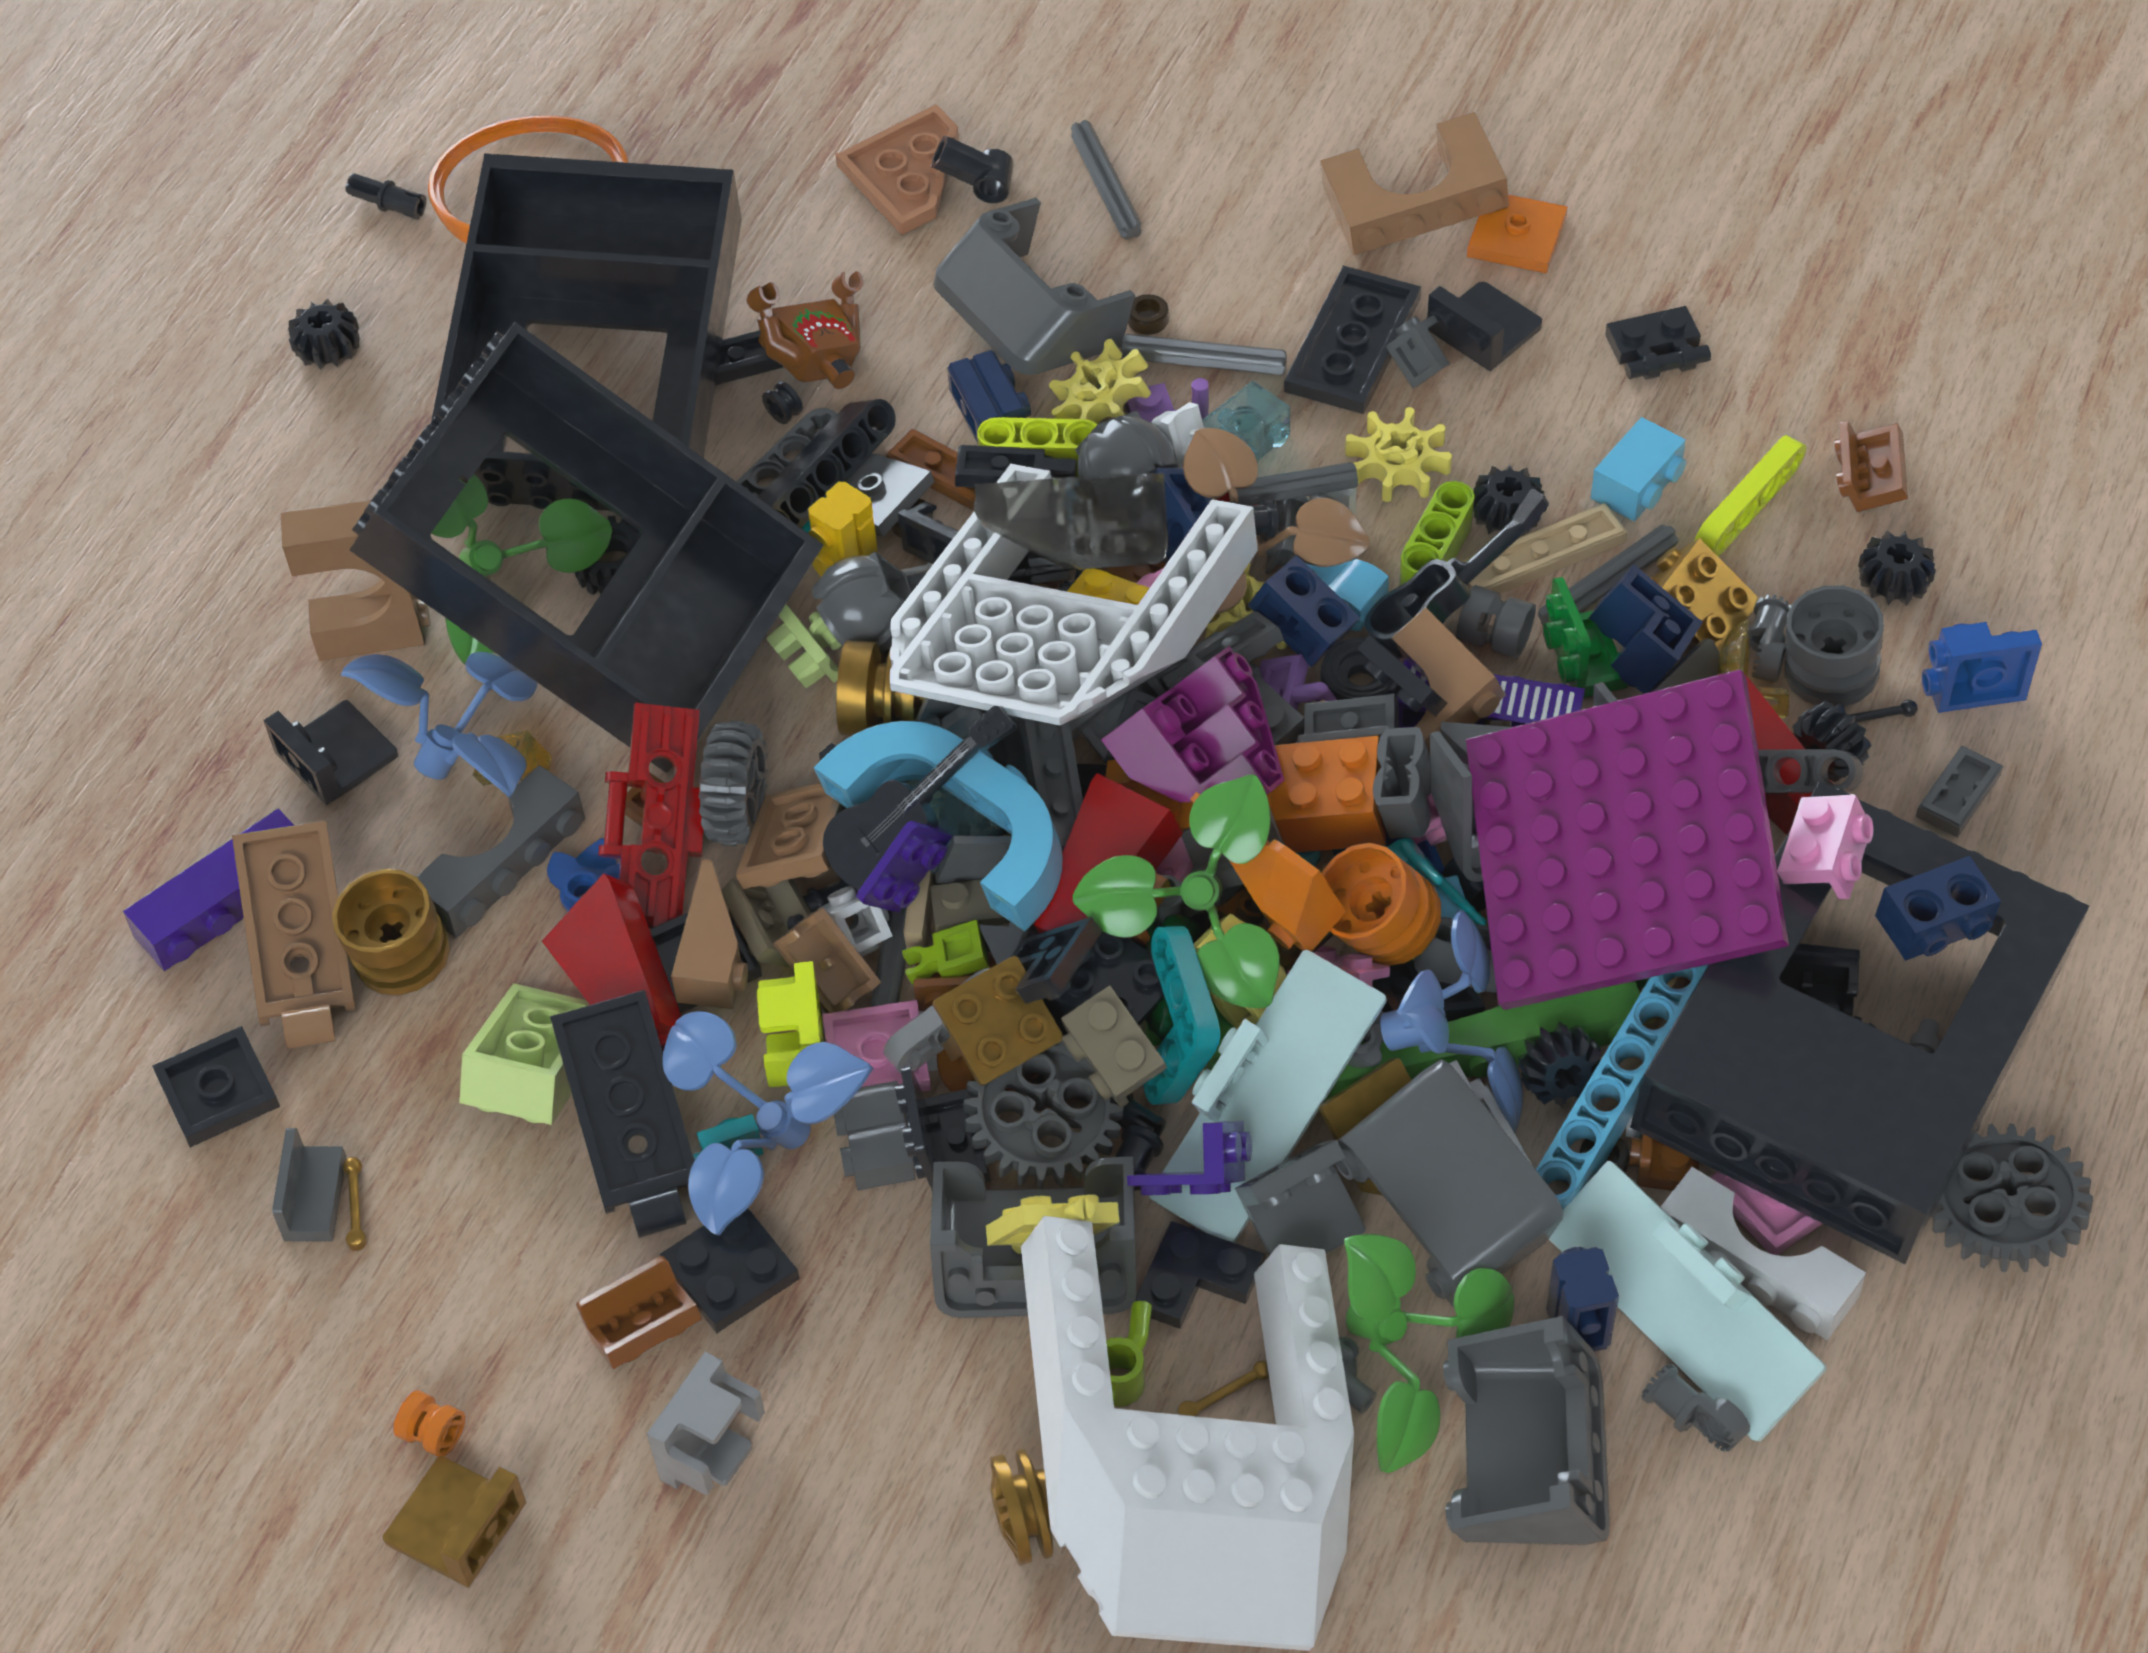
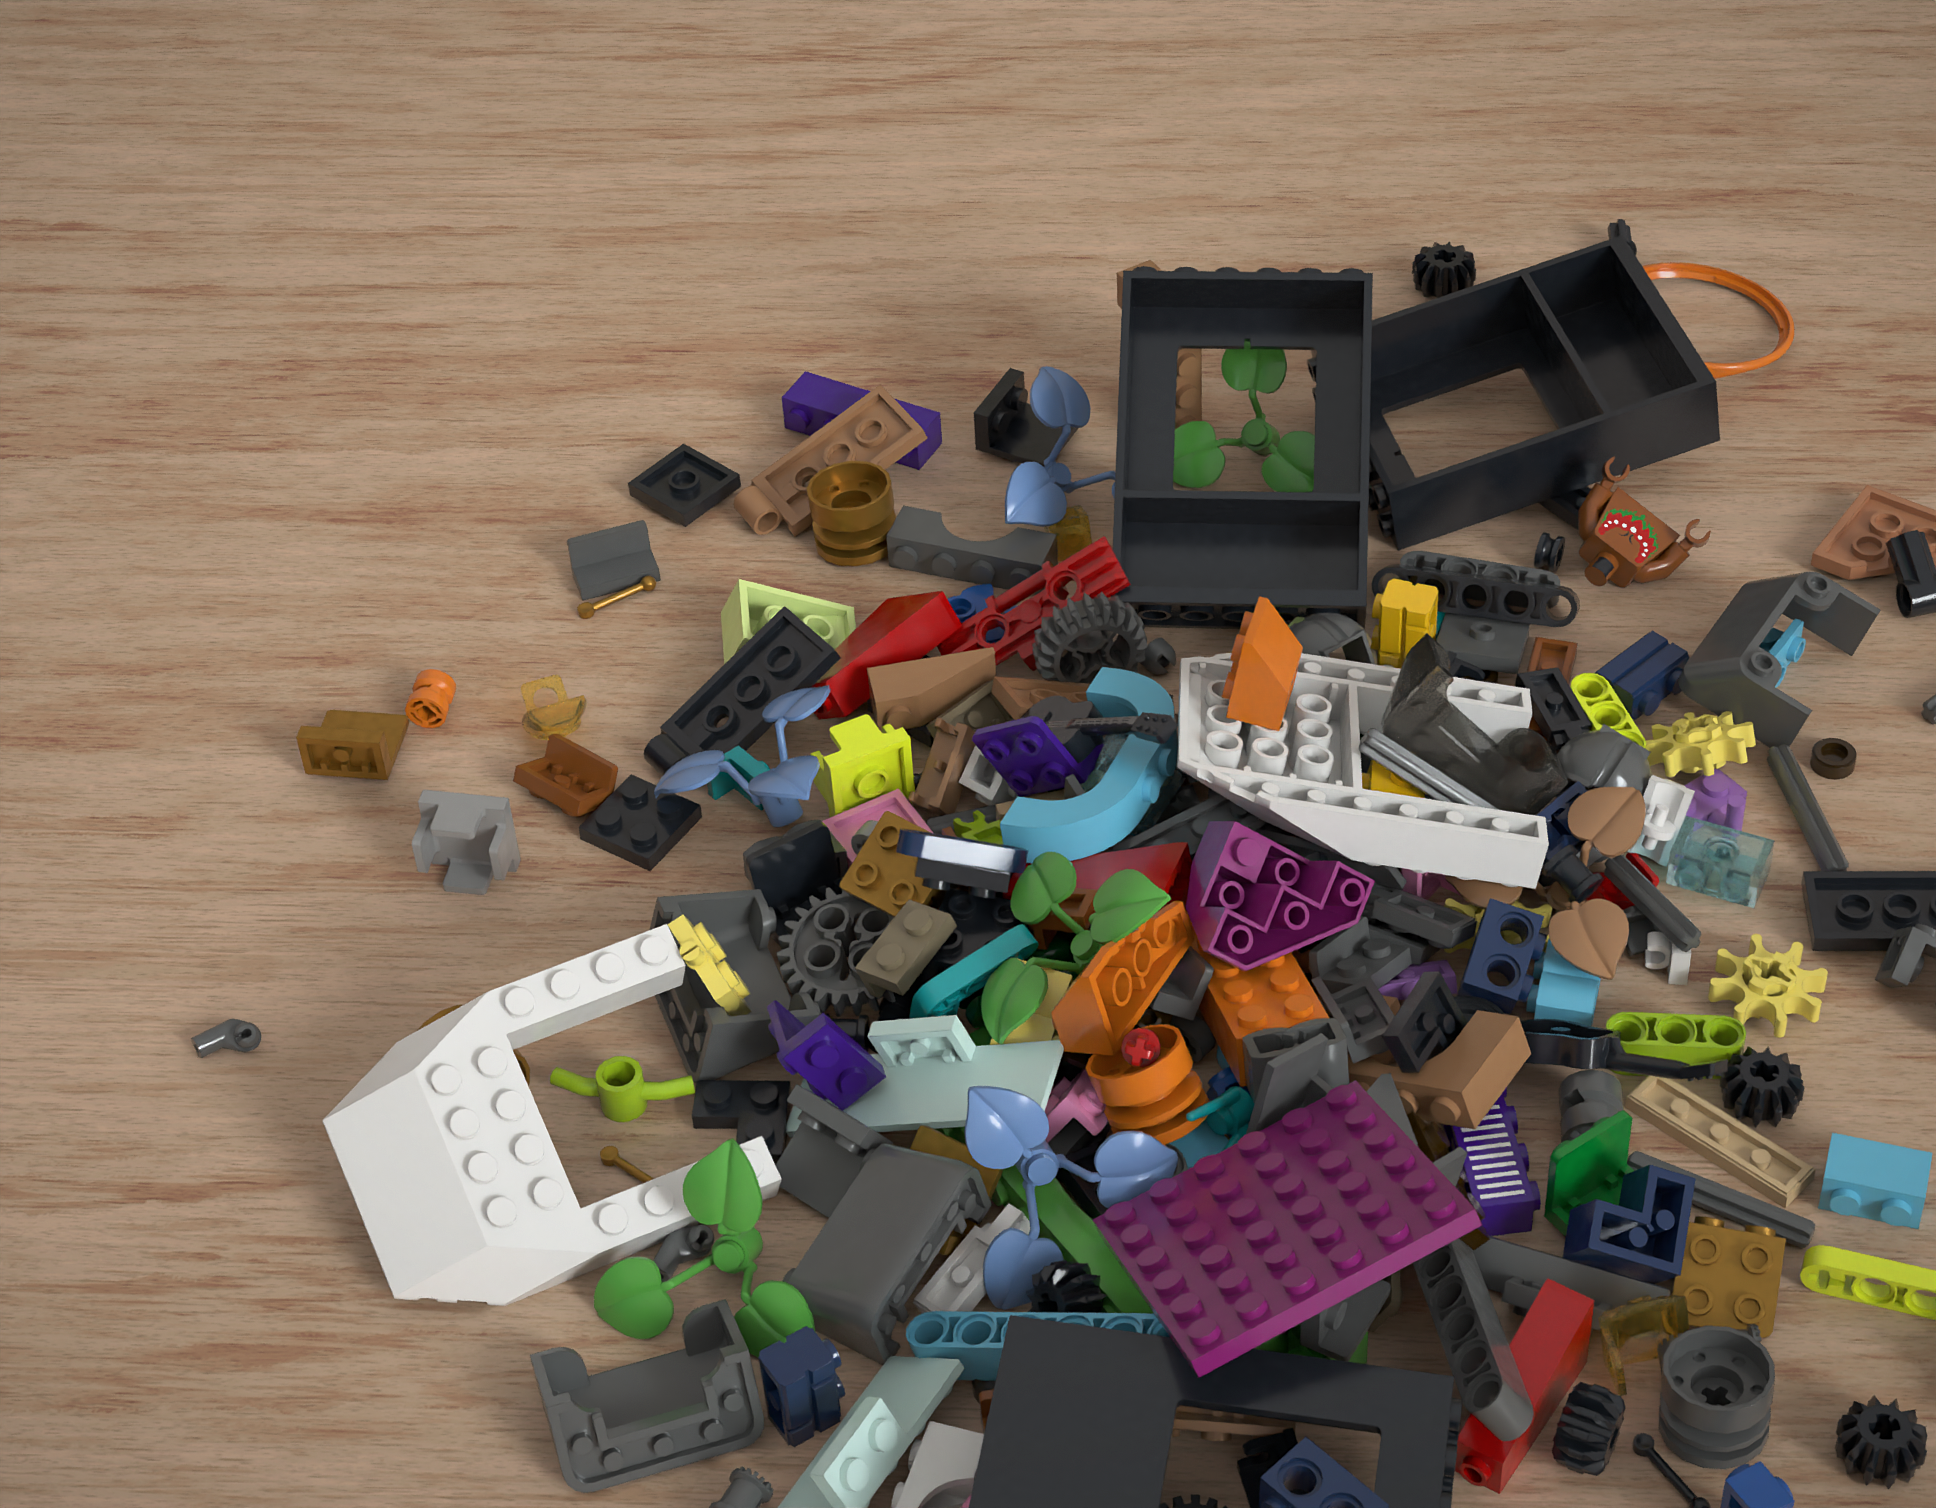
camera: 70 degrees right, 10 degrees down
(536, 1304) = (555, 718): none -> clear yellow piece
(969, 620) = (1262, 668): none -> orange slope
(1035, 948) = (962, 851): none -> beam
(1126, 562) = (1417, 771): none -> axle
(1369, 878) = (1141, 1047): none -> red axle
(1827, 843) = (1360, 1394): bright pink bracket -> none

